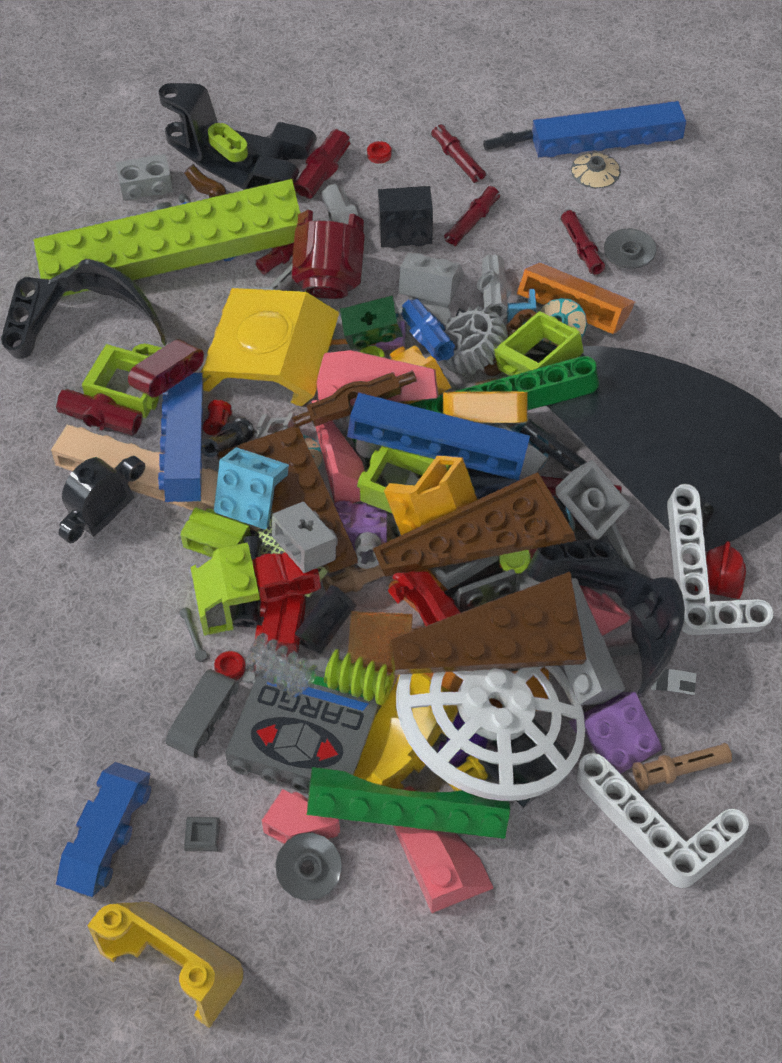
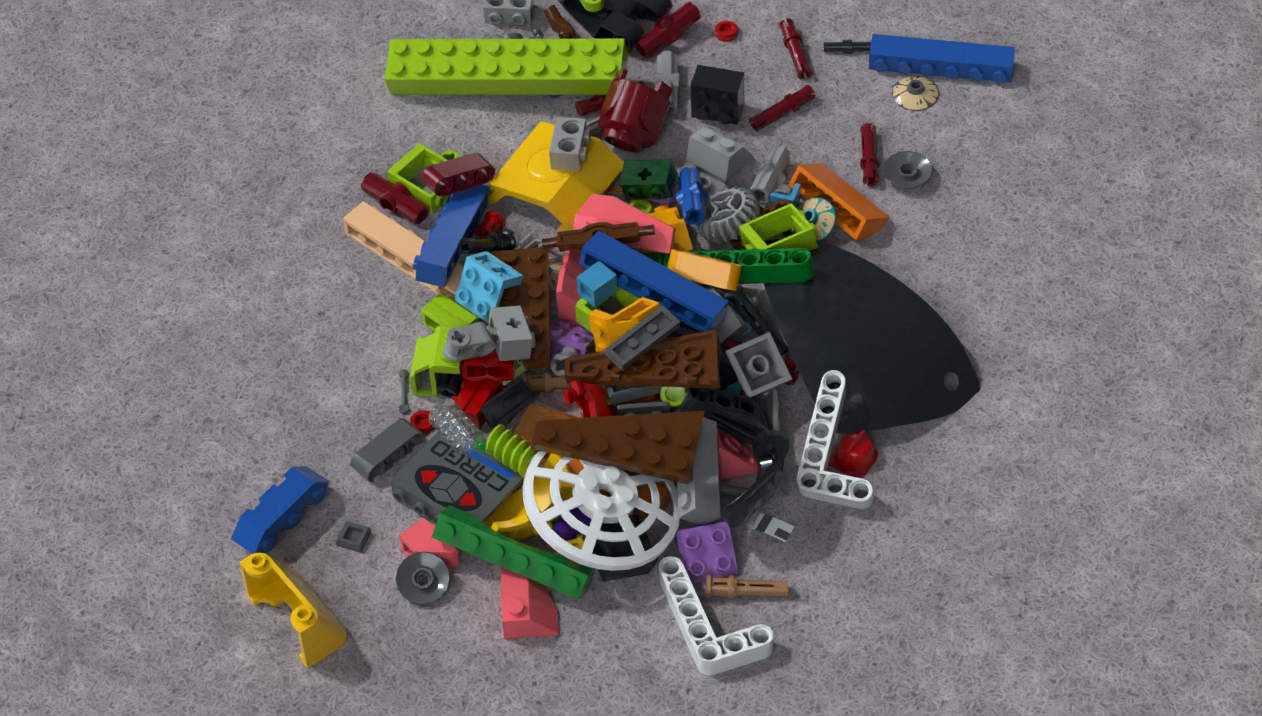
camera: 20 degrees right, 5 degrees down
(85, 275) = (387, 89): black piece -> none
(97, 495) = (365, 263): black piece -> none
(261, 561) = (471, 340): none -> light grey piece
(278, 304) = (569, 144): none -> light grey brick
(378, 453) = (596, 284): none -> dark azure panel
(459, 504) = (642, 338): none -> dark grey plate

